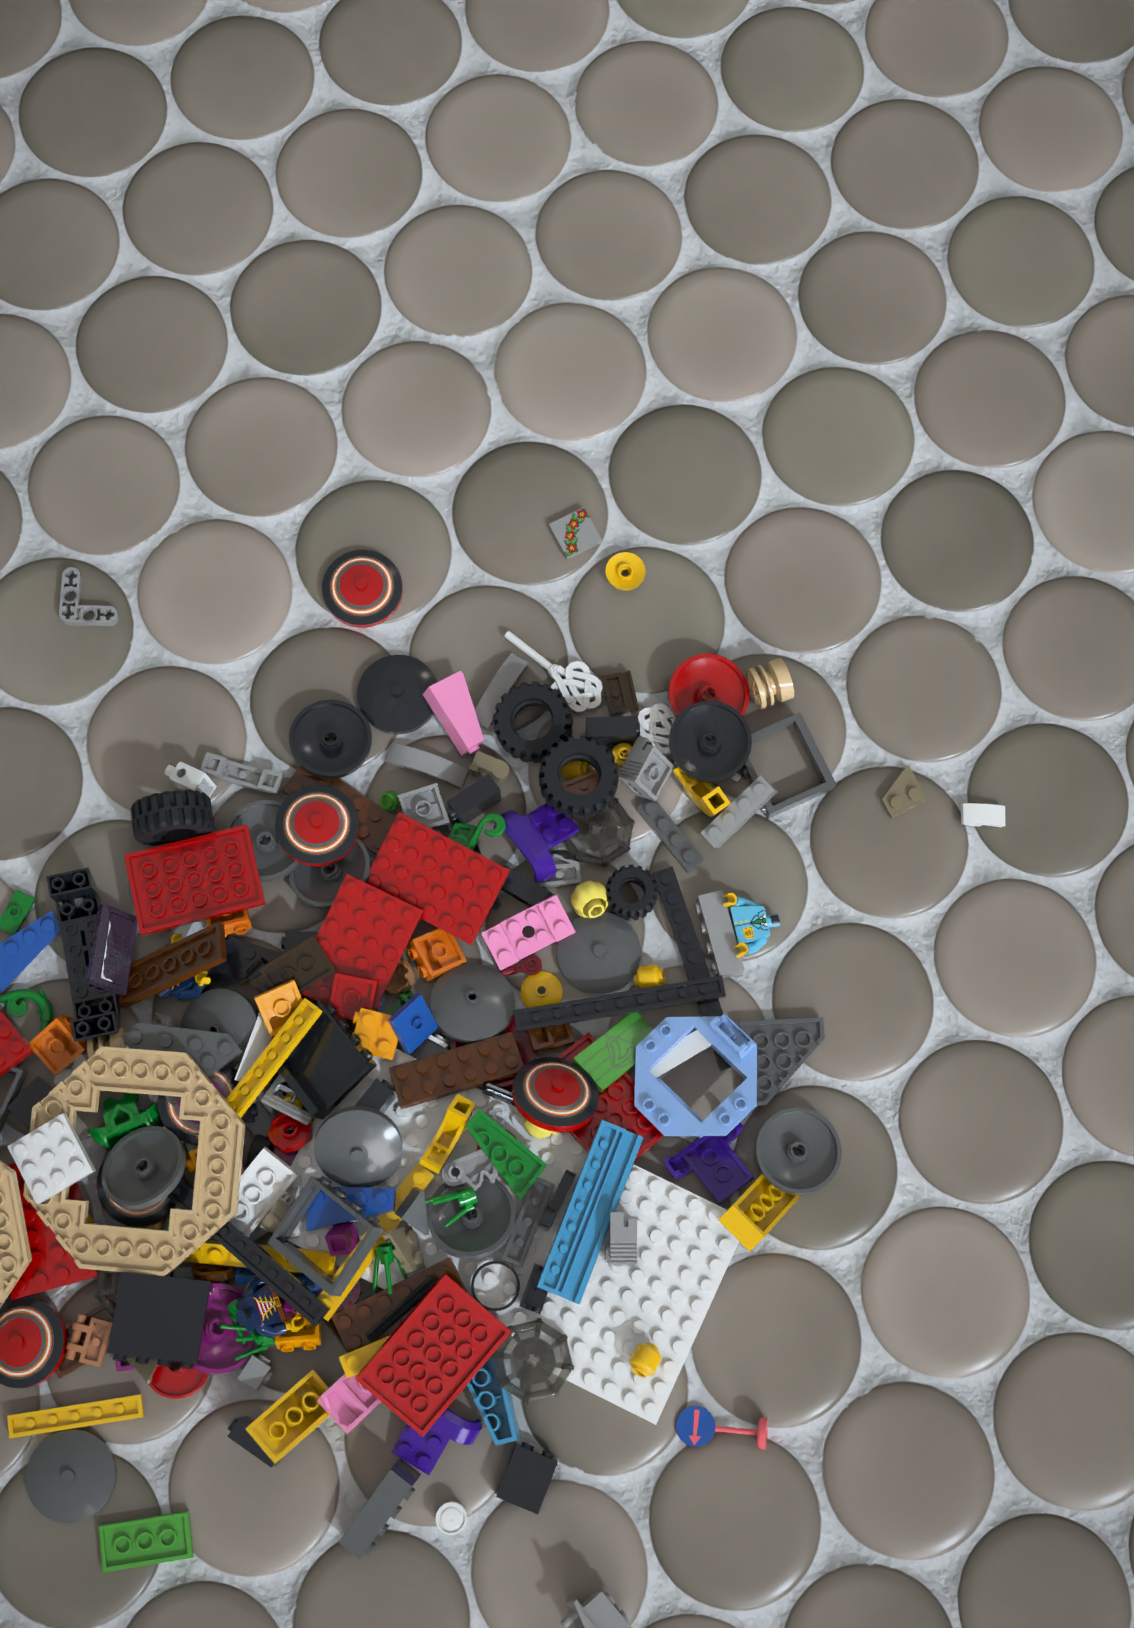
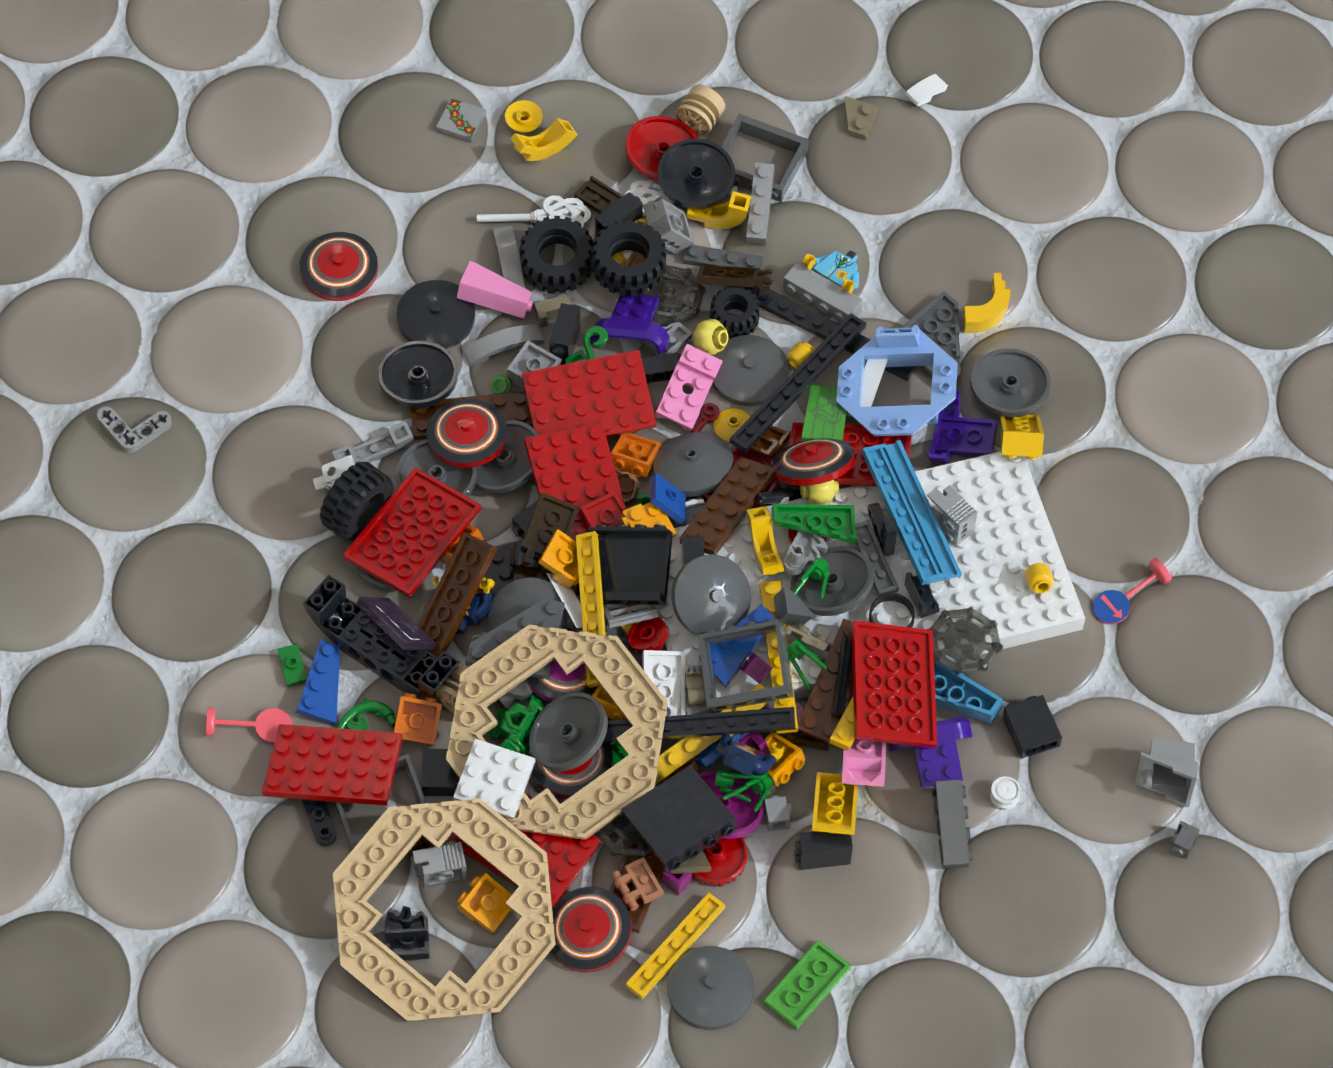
camera: 40 degrees left, 15 degrees down
(619, 610) = (547, 143): none -> yellow arch
(658, 860) = (734, 276): none -> dark brown tile
(846, 1071) = (987, 316): none -> yellow arch

